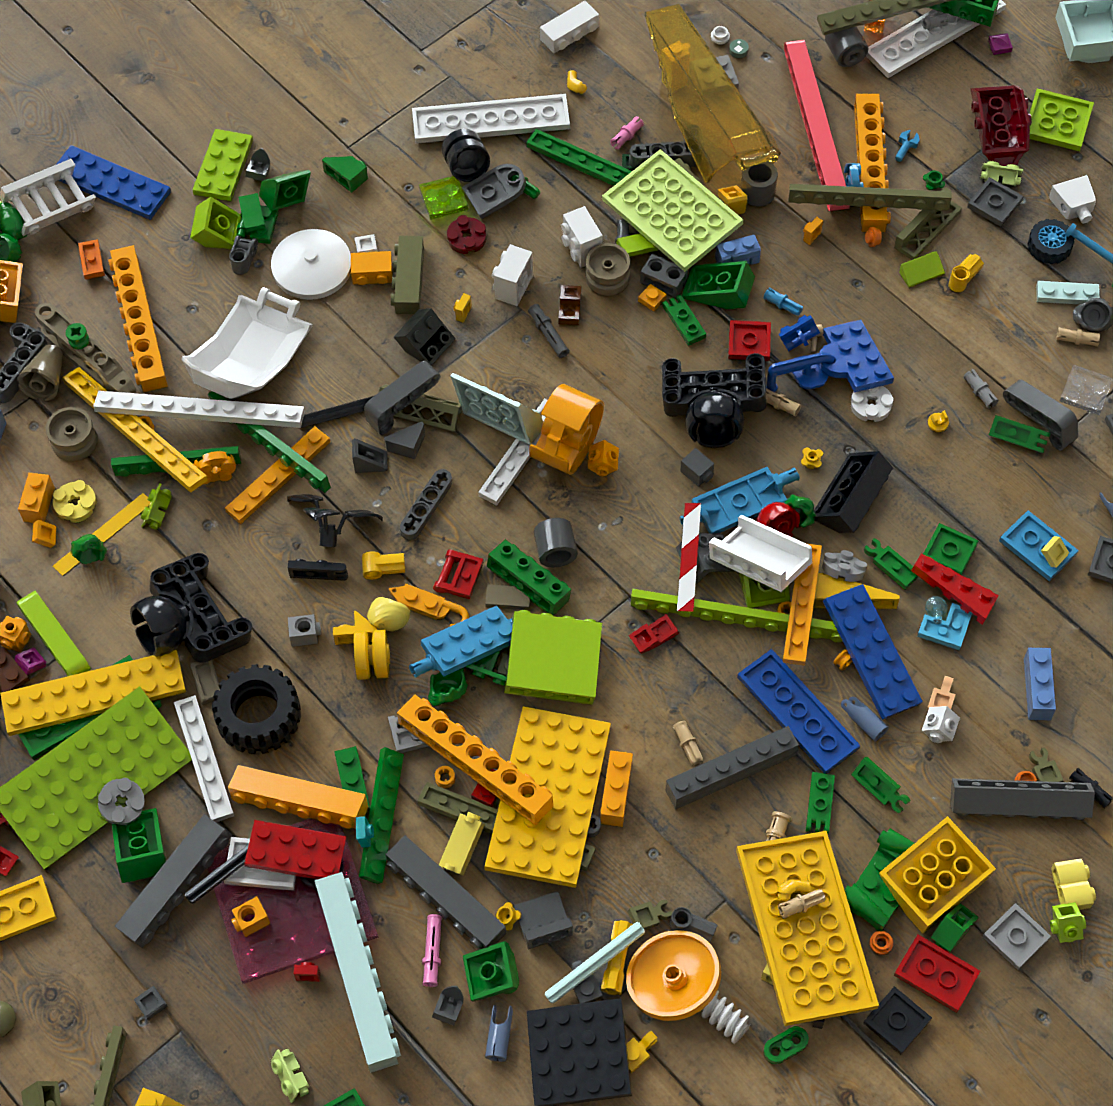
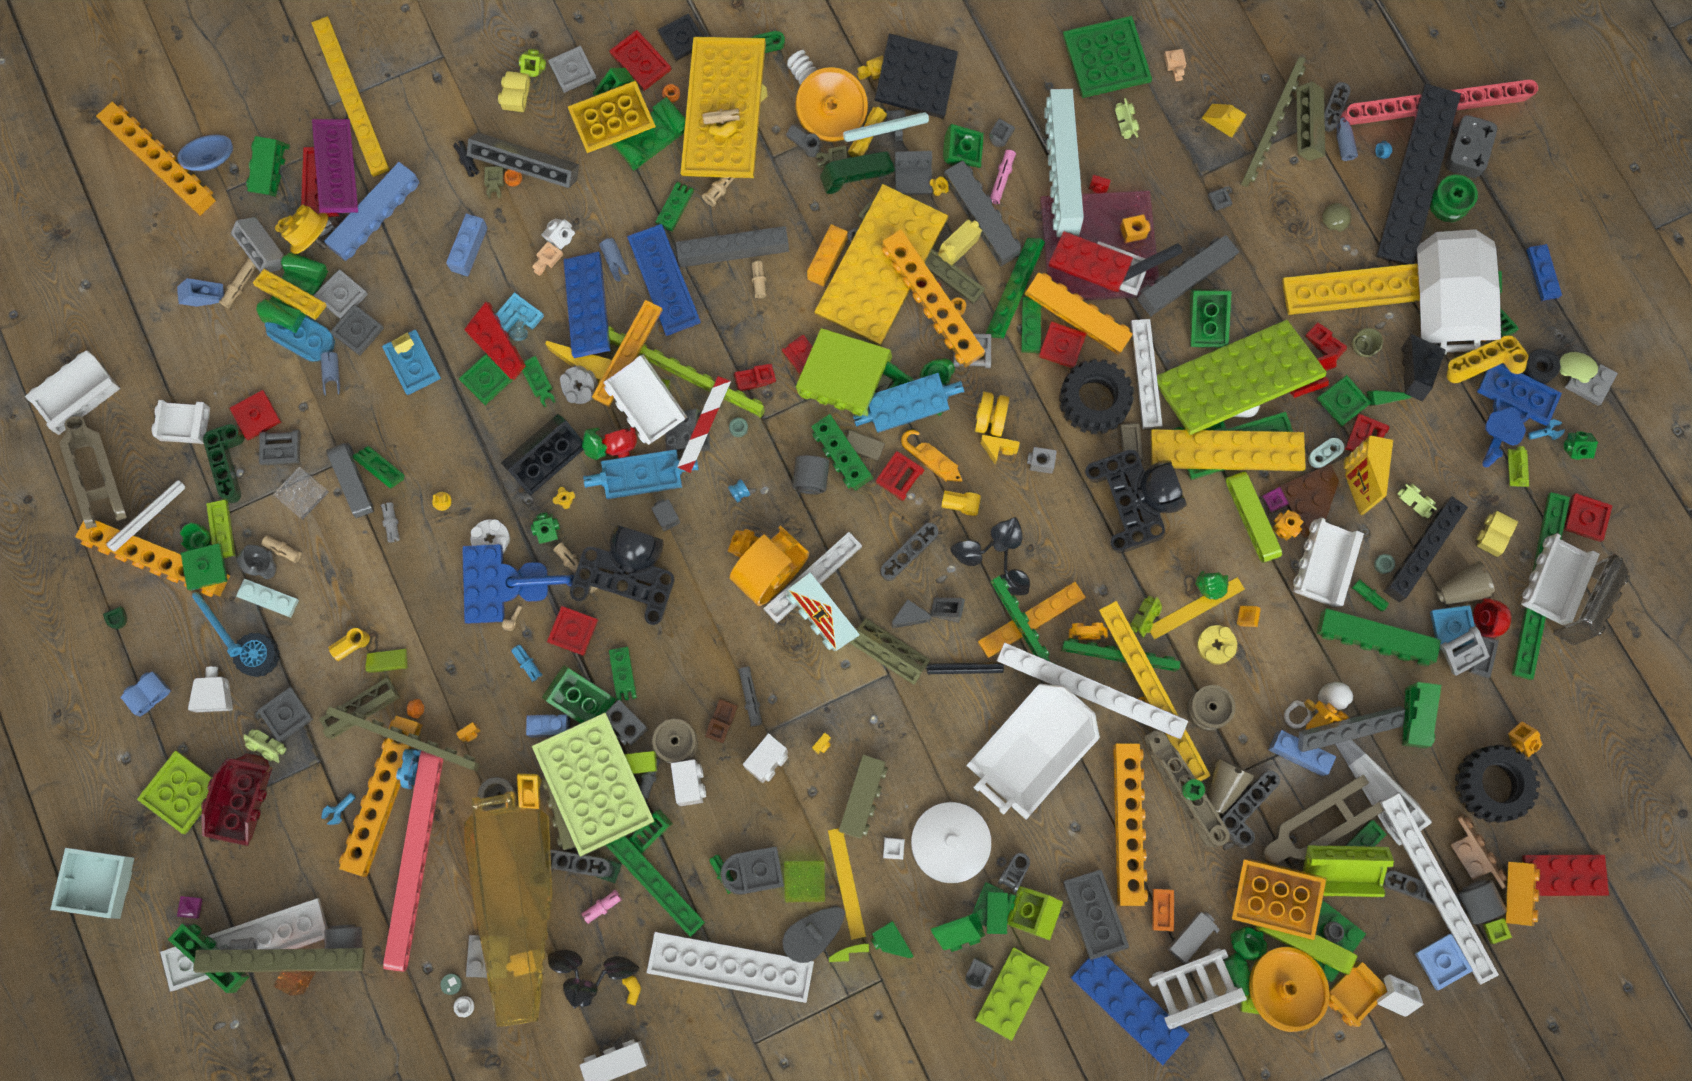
camera: 165 degrees left, 15 degrees up
(36, 497) = (1251, 652): light orange brick -> none
(59, 244) = (1192, 936): none -> light grey brick
(118, 814) = (1222, 338): light grey plate -> none
(156, 236) = (1095, 915): none -> dark grey plate
(310, 761) = (1062, 345): none -> red plate
(317, 570) = (1012, 510): black hinge -> none
(364, 832) = (1033, 265): teal plate -> none
(371, 267) = (895, 815): light orange brick -> none
(388, 614) = (971, 446): light yellow hair -> none
(390, 150) = (843, 955): none -> lime slope
(398, 395) = (903, 653): dark grey beam -> none
(402, 207) = (846, 884): none -> yellow sticker
(421, 160) = (812, 934): none -> dark grey shield
(424, 336) = (866, 722): pearl dark grey slope -> none
(465, 155) = (771, 913): black wheel -> none
(466, 225) = (794, 842): dark red plate -> none
(498, 1037) = (970, 101): sand blue piece -> none
(597, 207) = (663, 819): none -> green slope
(612, 674) = (798, 353): none -> red plate
(612, 900) = (855, 169): none -> dark green beam
(628, 511) = (739, 490): none -> dark azure wheel
(643, 83) = (582, 992): none -> black plant
(652, 297) = (643, 706): light orange plate -> none
(653, 579) = (738, 427): none -> sand green tile
(799, 332) = (527, 618): blue hips -> none
(817, 419) = (545, 534): none -> green brick
(843, 660) = (612, 309): light orange bush -> none
(879, 784) = (624, 203): green plate -> none
(934, 180) = (326, 754): green plate -> none

